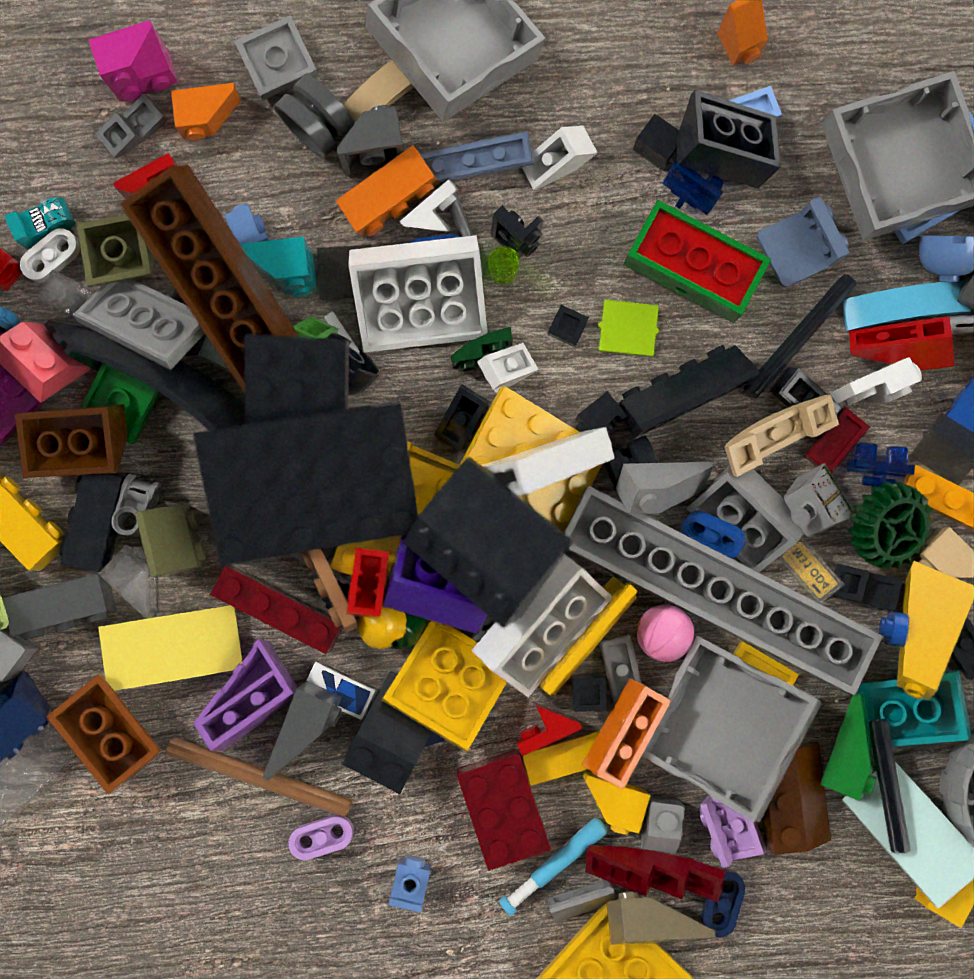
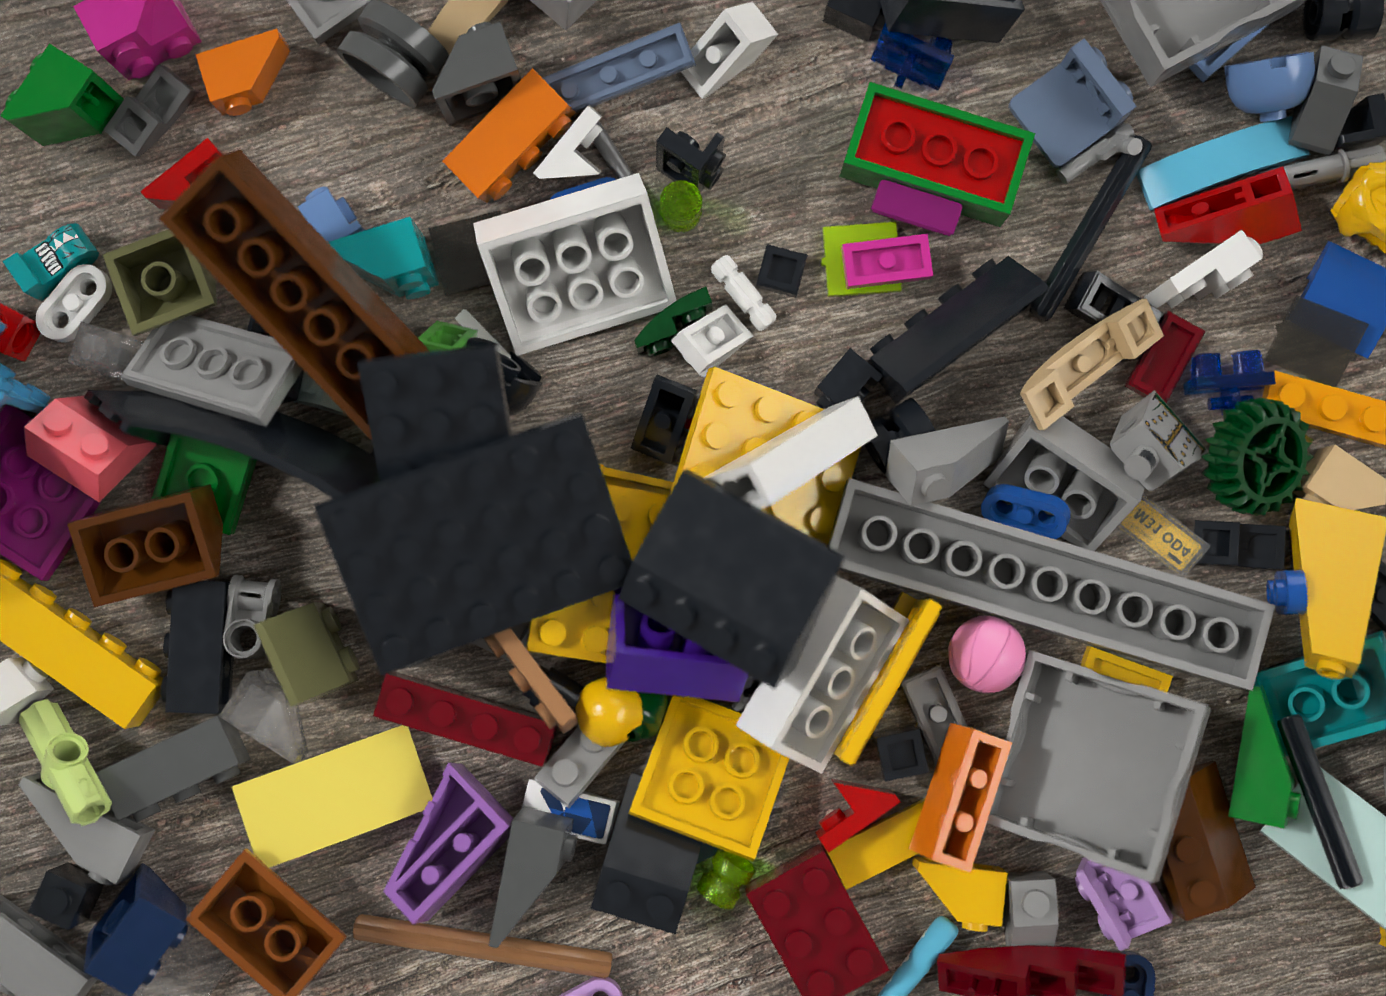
camera: 10 degrees left, 0 degrees up
(67, 106) = (61, 100): none -> green slope
(349, 659) = (574, 767): none -> light grey plate
(367, 583) = (581, 661): red slope -> none
(444, 761) = (725, 879): none -> clear neon green wheel
(537, 336) = (743, 292): none -> white axle
(646, 333) = (887, 261): none -> dark pink plate
(674, 297) = (916, 207): none -> magenta slope
(832, 275) = (1116, 141): none -> light grey hose

